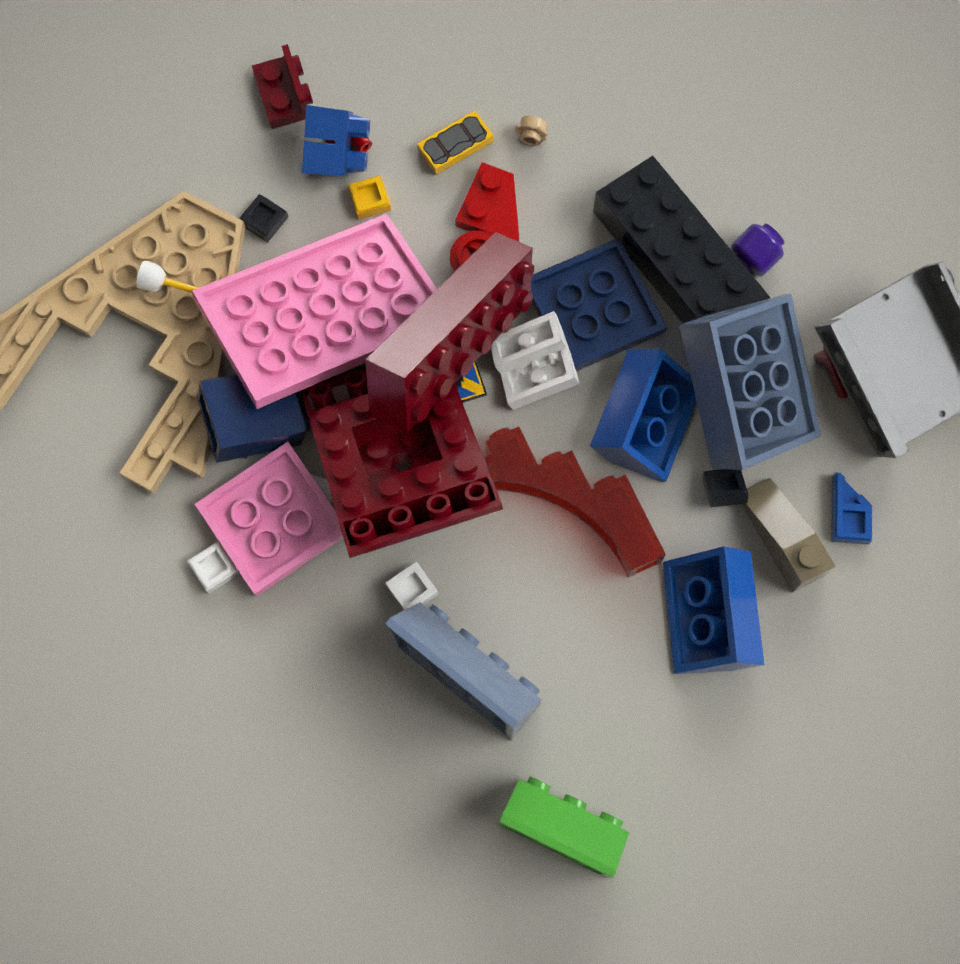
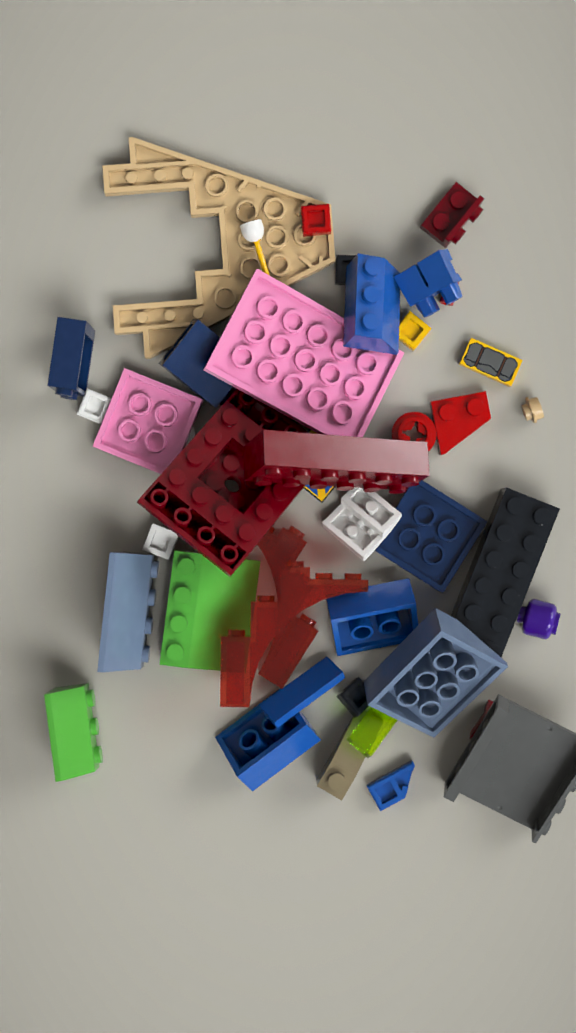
camera: 55 degrees right, 15 degrees up
(141, 548) = (71, 358): none -> dark blue window
(188, 212) = (316, 220): none -> red tile
(312, 210) = (371, 305): none -> blue slope
(525, 586) = (203, 607): none -> bright green slope
(599, 566) = (297, 592): none -> clear red arch
(682, 537) = (302, 691): none -> blue tile
(773, 489) = (371, 731): none -> clear neon green tile

